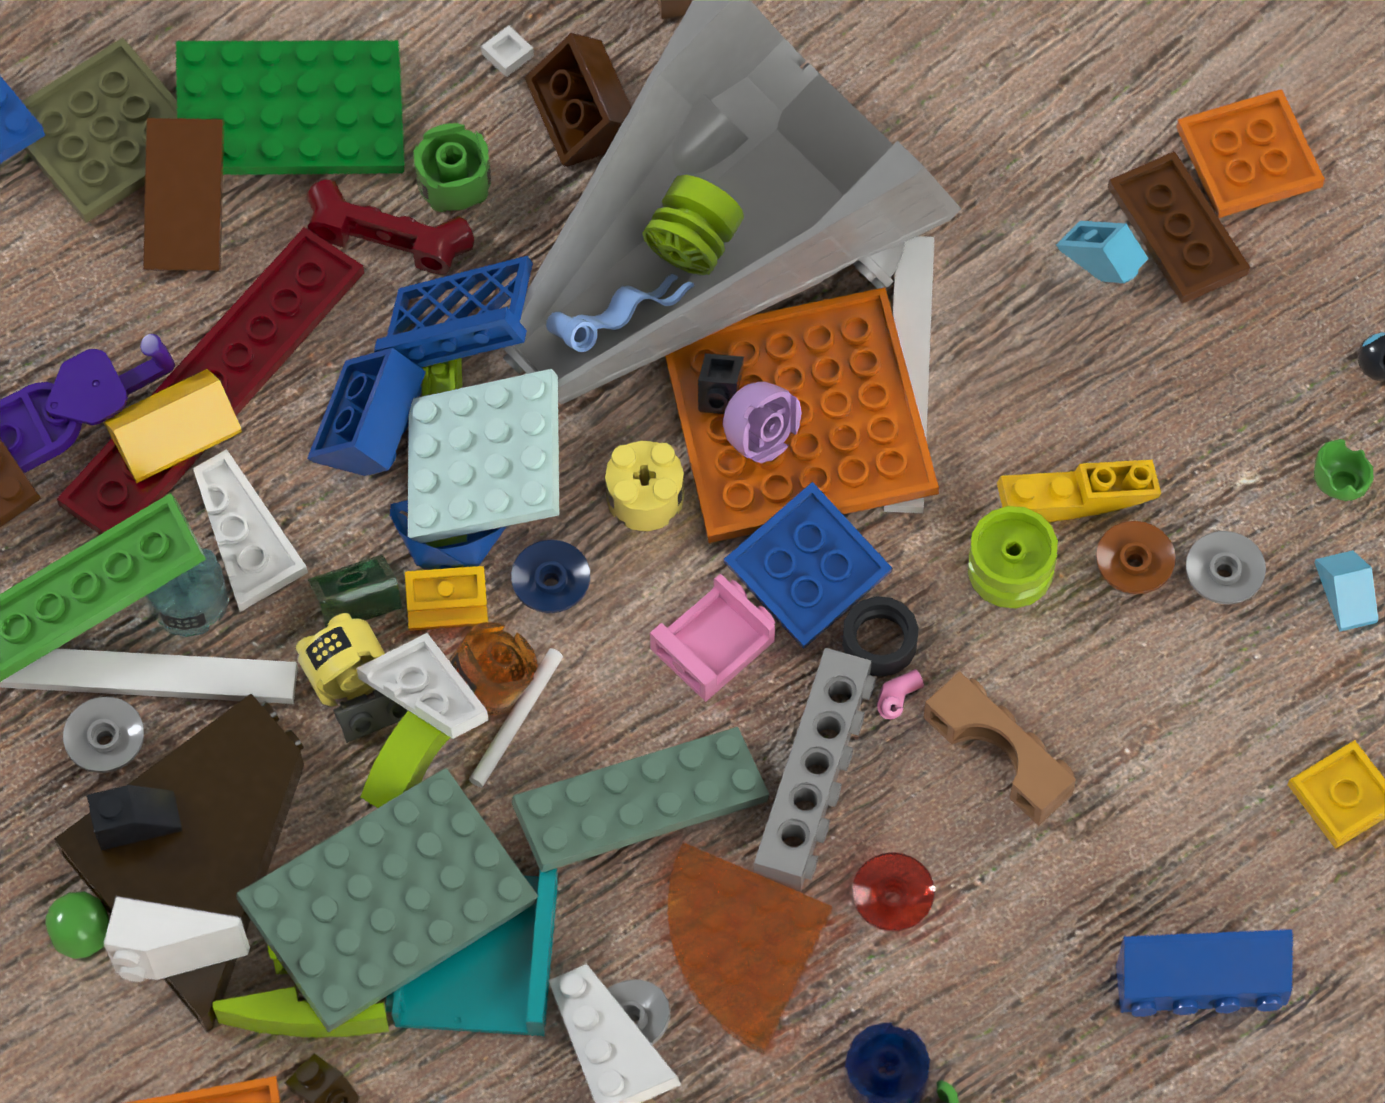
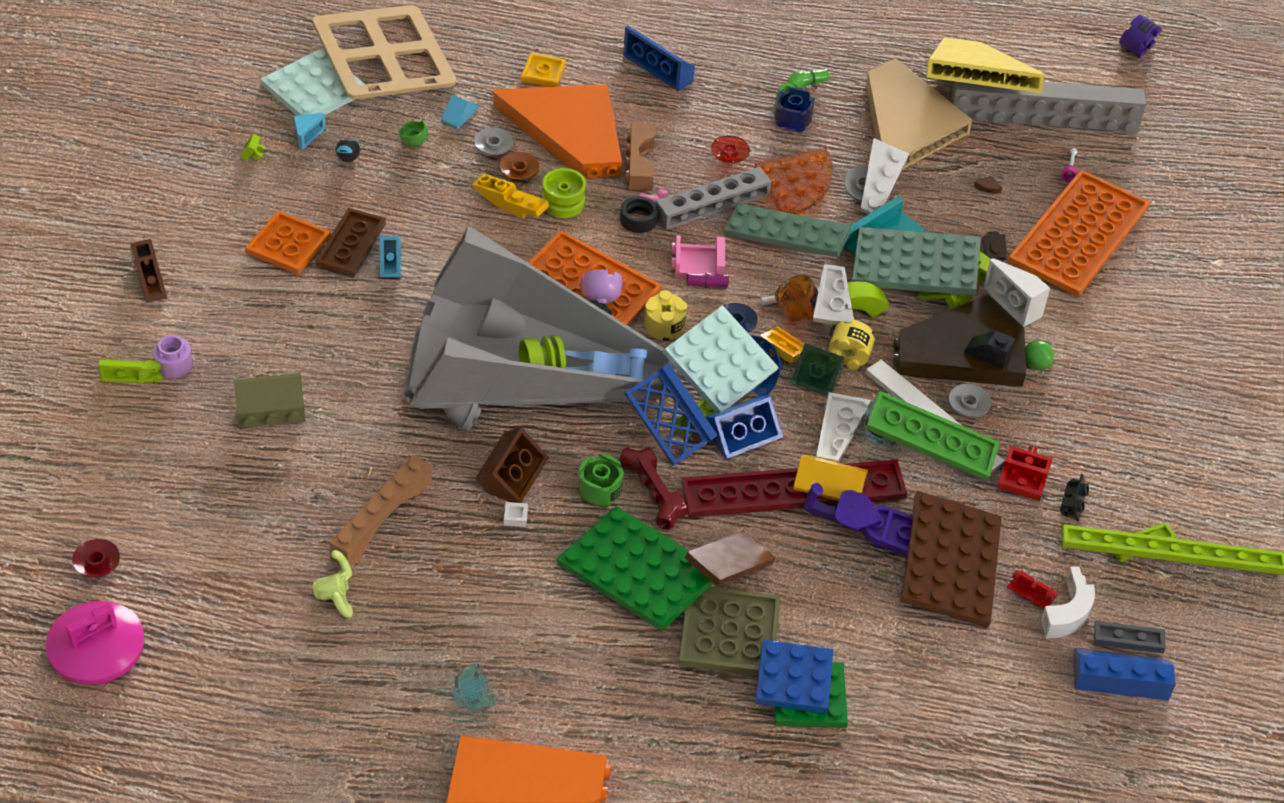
camera: 140 degrees left, 15 degrees down
(662, 611) = (707, 280): none -> magenta pin
(808, 565) = (639, 246): blue plate -> none
(1163, 711) = (569, 123): none -> orange slope

